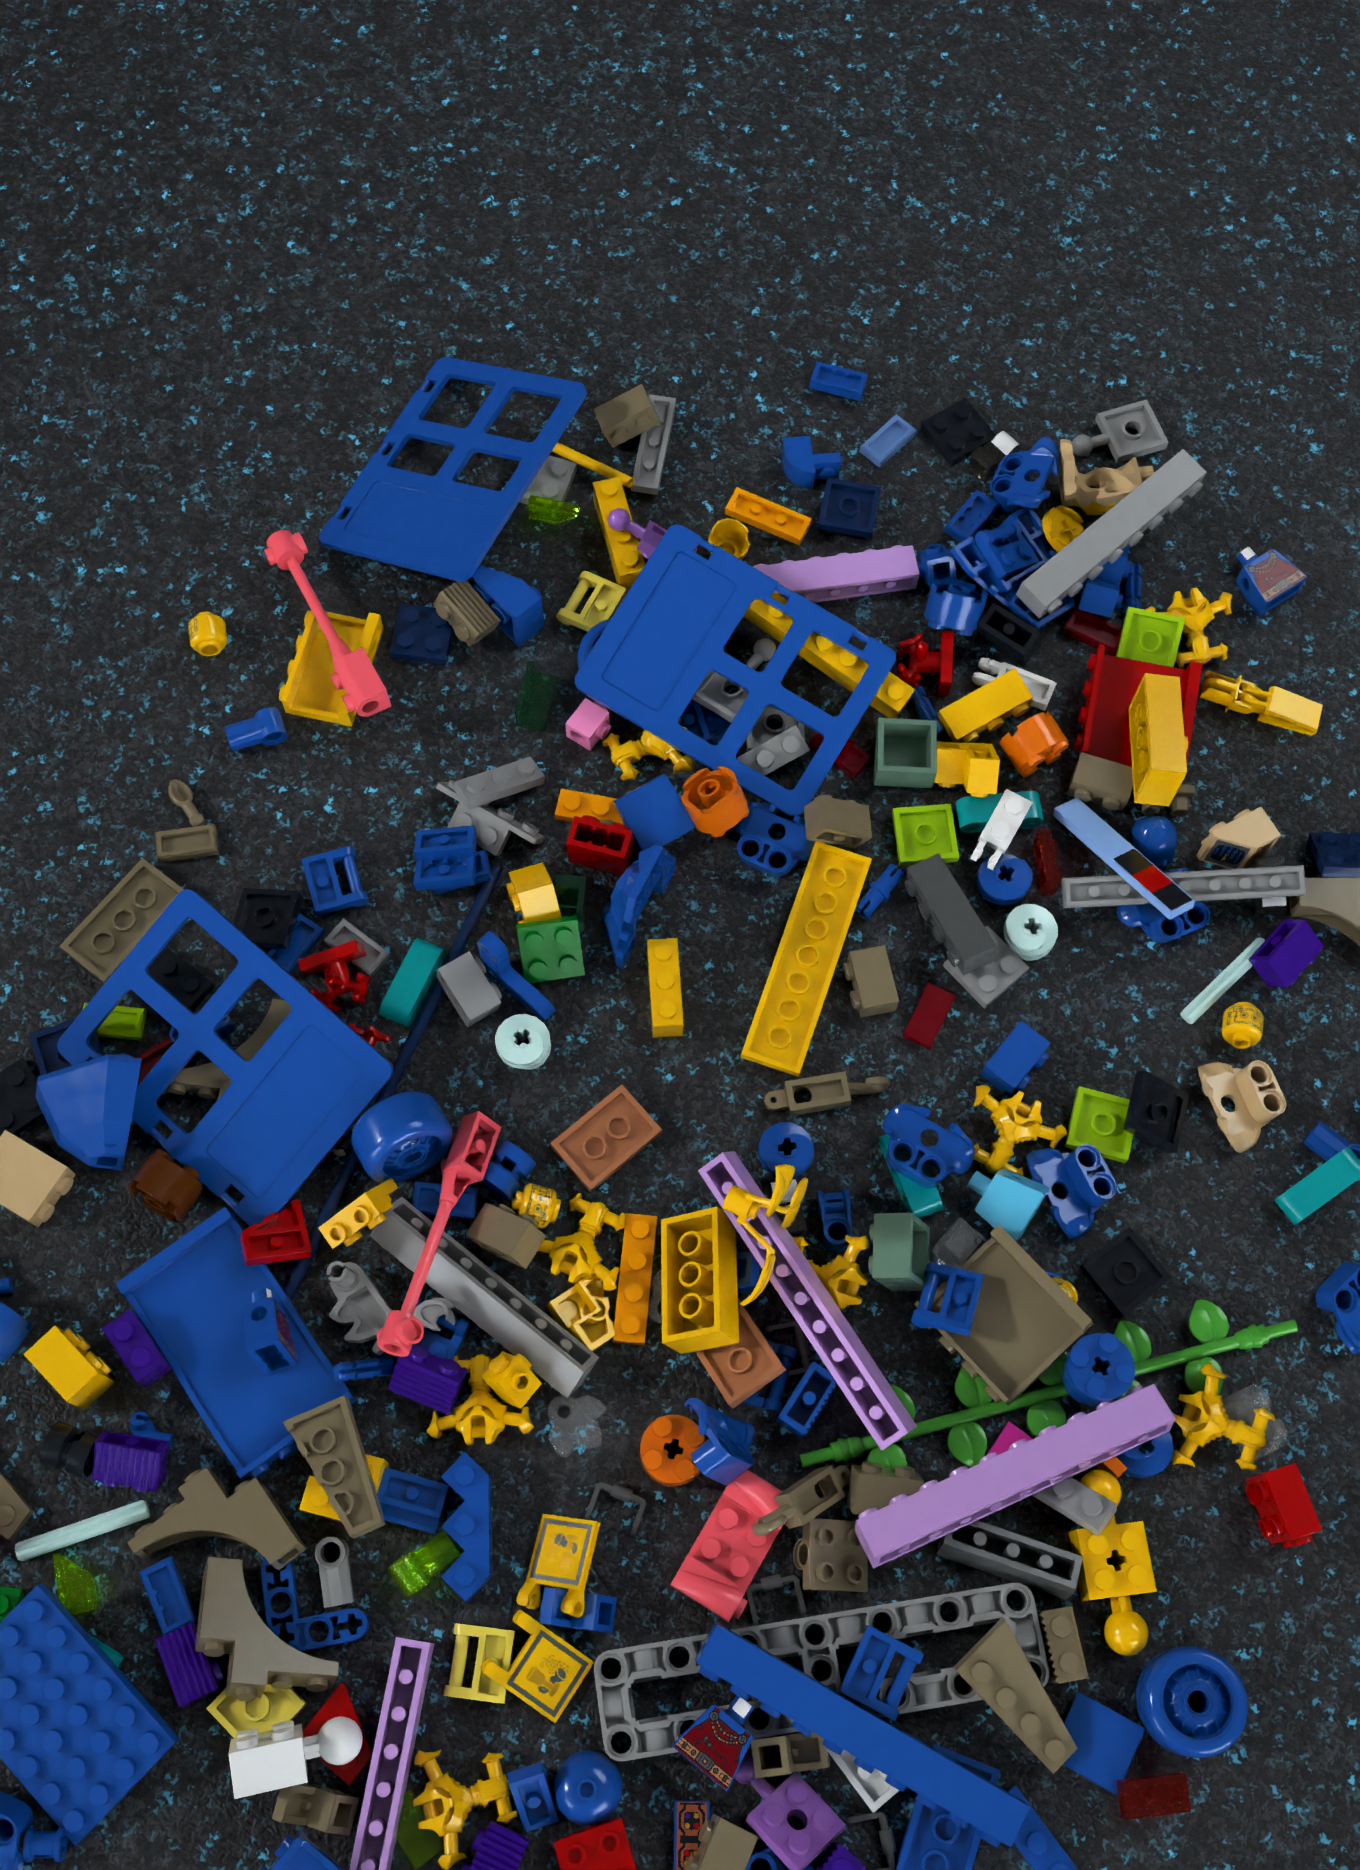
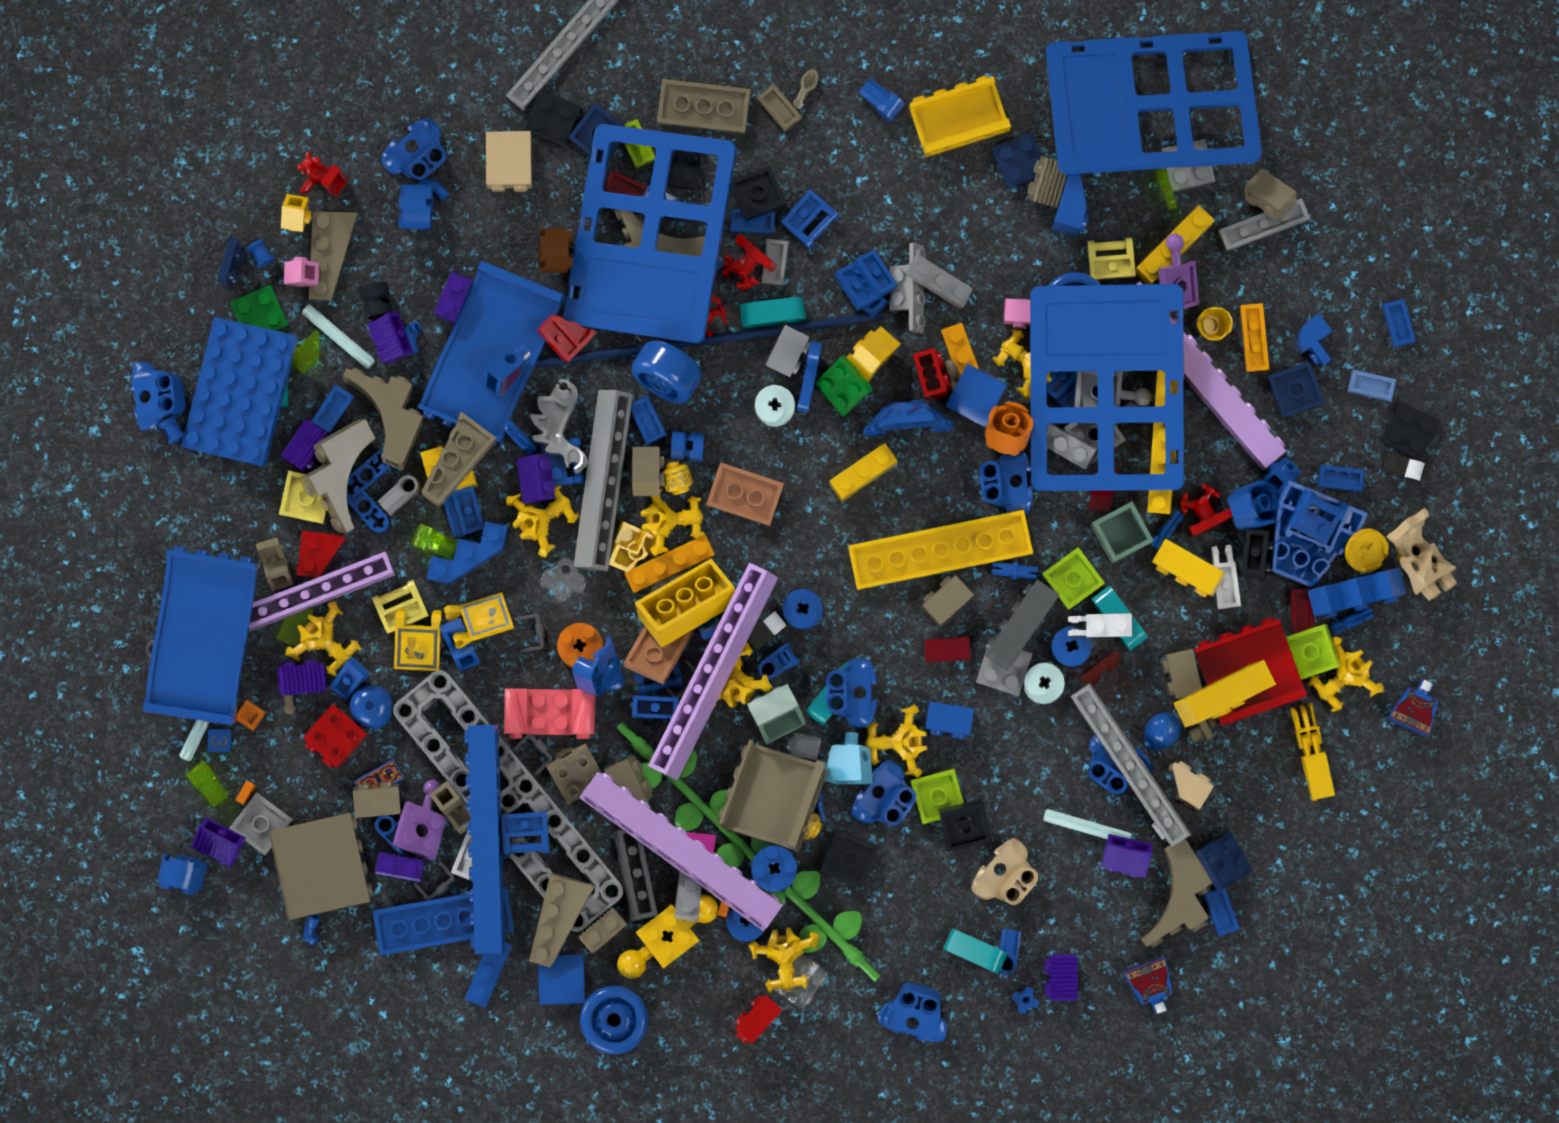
camera: 60 degrees right, 15 degrees up
(69, 1367) = (419, 268): yellow brick -> none
(91, 1107) = (572, 175): blue brick -> none
(207, 633) = (930, 20): yellow head -> none
(280, 1756) = (289, 527): white brick -> none
(352, 669) = (955, 138): coral bar -> none
(362, 1212) = (605, 377): yellow plate -> none
(463, 1166) = (673, 419): coral bar -> none
(512, 1378) = (564, 527): yellow brick -> none
(535, 699) = (1016, 266): clear green panel -> none
(573, 894) = (890, 378): clear green panel -> none
(592, 464) = (1219, 194): yellow piece -> none
(718, 1741) = (435, 762): torso -> none
(747, 1204) = (741, 604): yellow plant -> none
(800, 1502) = (593, 736): dark tan piece -> none
(827, 1093) = (856, 612): dark tan piece -> none
(837, 822) = (1043, 516): dark tan brick -> none
(958, 1301) = (763, 764): blue plate -> none
(968, 764) = (1137, 578): yellow brick -> none
(1012, 479) = (1371, 504): blue piece -> none
(1034, 742) = (1181, 614): orange brick -> none
(1111, 533) = (1370, 583): light grey brick -> none
(1122, 444) = (1469, 552): light grey plate -> none
(1124, 858) = (1126, 714): light blue tile -> none
(1153, 1796) = (550, 1024): clear red plate -> none
(1242, 1025) = (1059, 852): yellow head -> none

